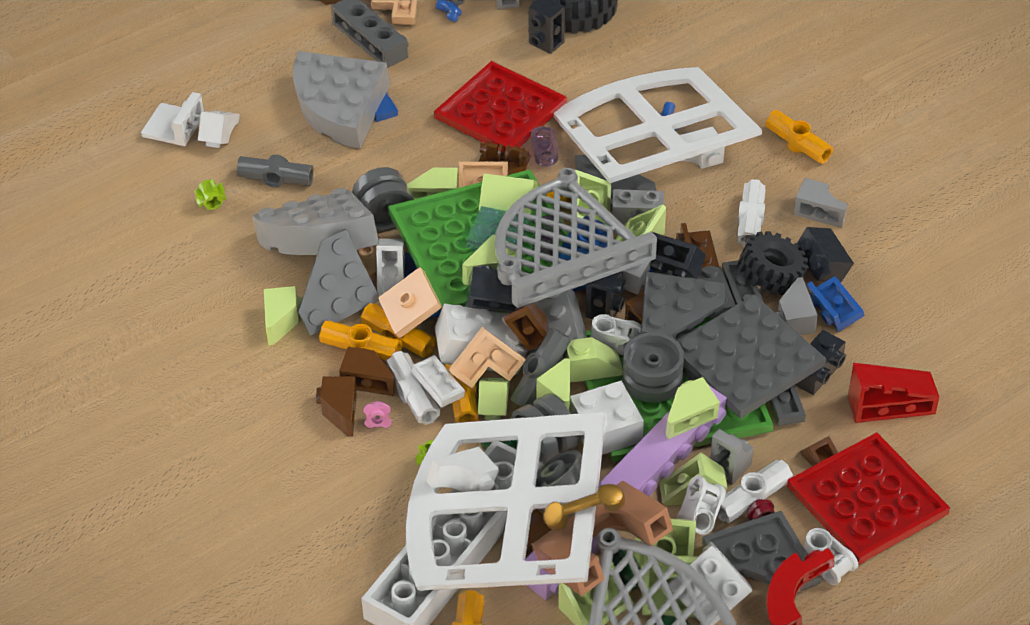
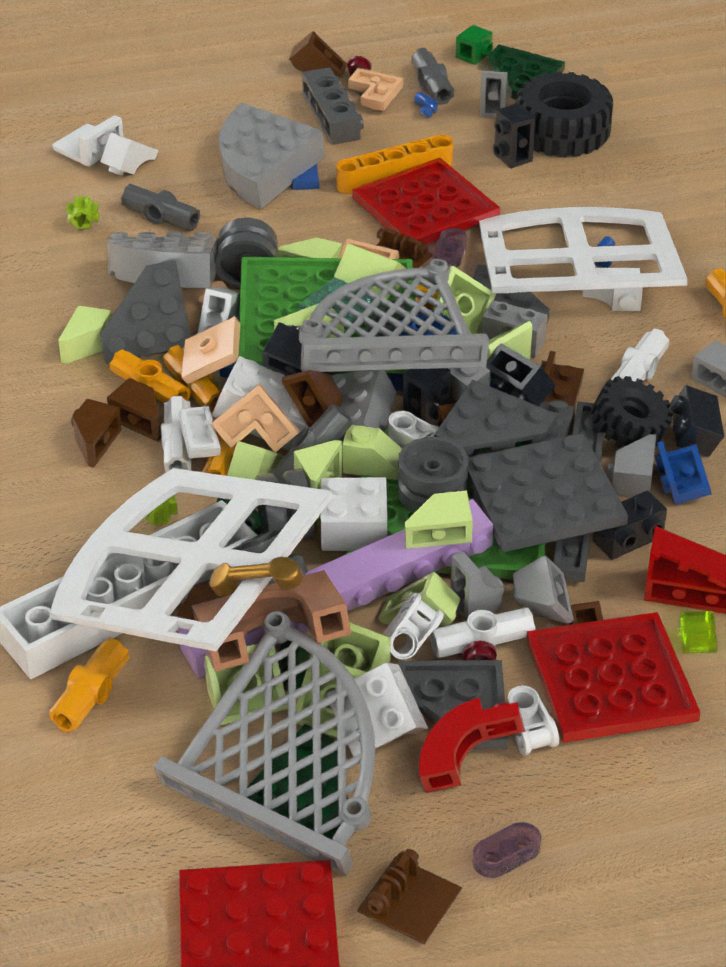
camera: 20 degrees right, 5 degrees down
(380, 409) = (131, 448): bright pink plate -> none
(446, 80) = (385, 162): none -> light orange beam
(463, 471) = (159, 514): white arch -> none
(784, 441) = (543, 590): none -> light grey slope
(912, 439) = (697, 632): none -> clear neon green slope

